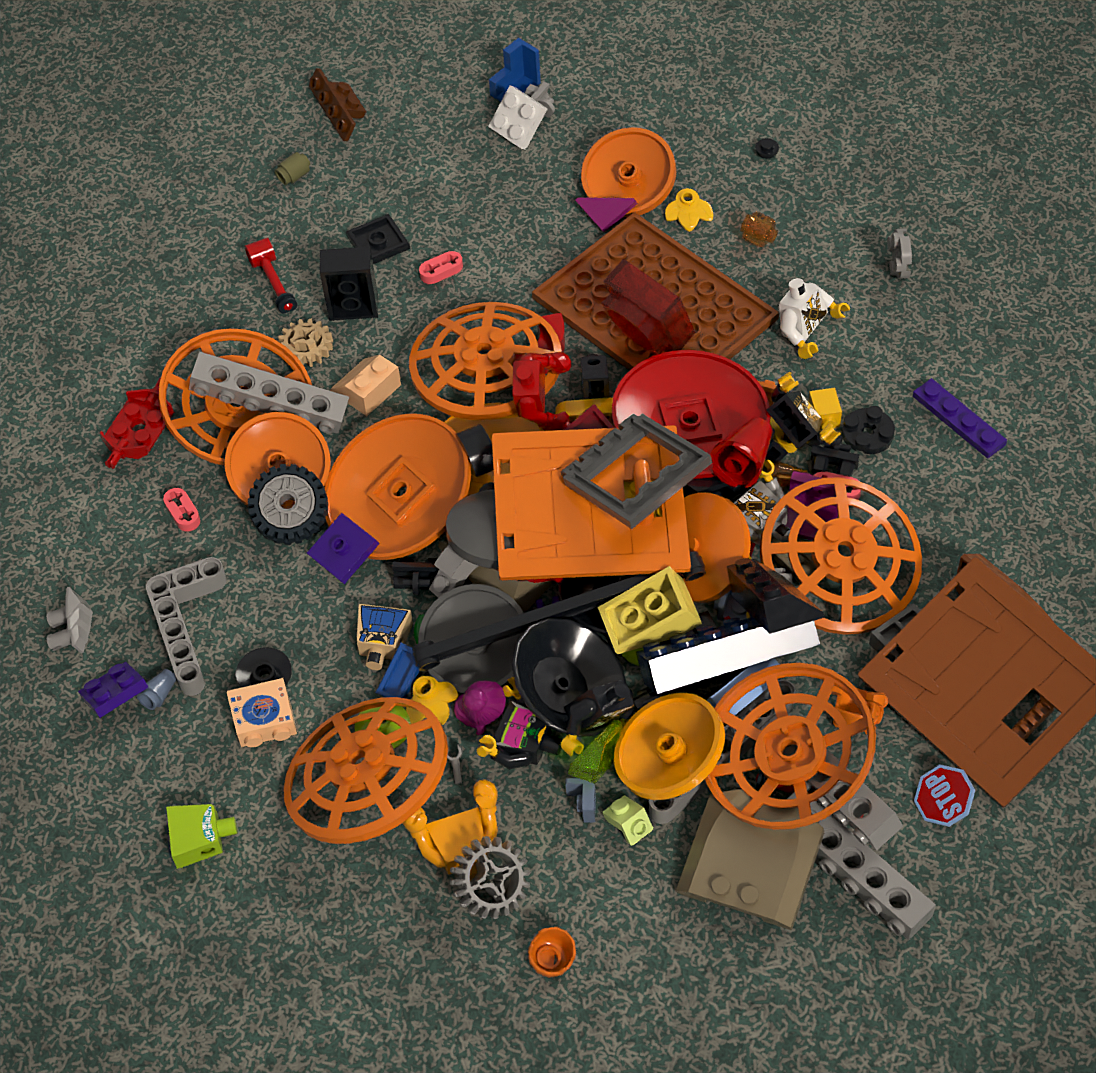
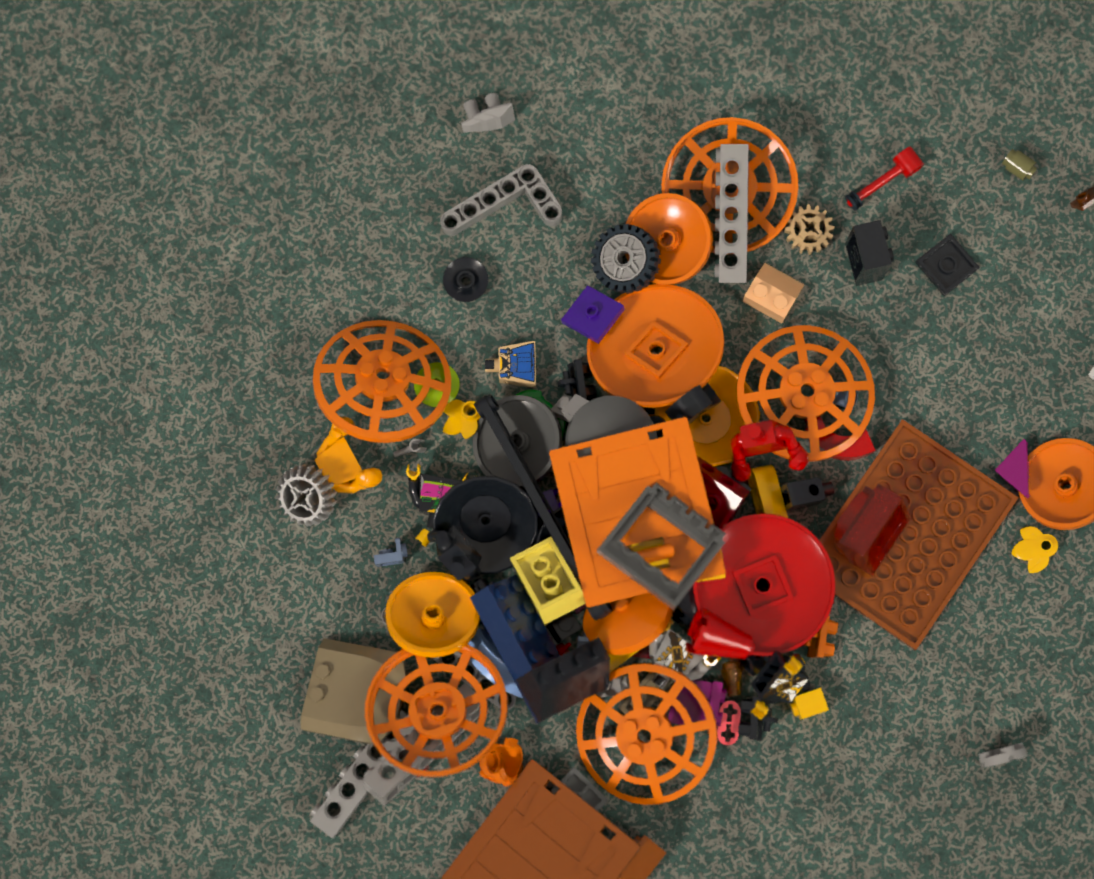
camera: 80 degrees right, 25 degrees up
(112, 689) = (429, 166): dark purple plate -> none
(140, 408) = (680, 98): red plate -> none
(157, 689) = (438, 199): sand blue cone -> none
(185, 507) = (618, 174): coral beam -> none
(197, 832) = (318, 265): lime torso -> none
(262, 713) = (422, 289): light nougat slope -> none
(399, 674) = (476, 387): blue tile -> none
(441, 267) = (918, 333): coral beam -> none
(480, 705) = (457, 457): magenta hair -> none
(547, 945) = (256, 546): orange hair -> none
(598, 755) = (419, 557): clear neon green tile -> none
(629, 818) = (378, 592): yellowish green bracket -> none
(759, 229) = (1016, 618): clear orange head -> none
(802, 312) = (916, 671): white torso -> none
(873, 418) = (809, 749): black plate -> none
(944, 795) = (433, 839): piece -> none
(959, 418) = (824, 826): dark purple plate -> none

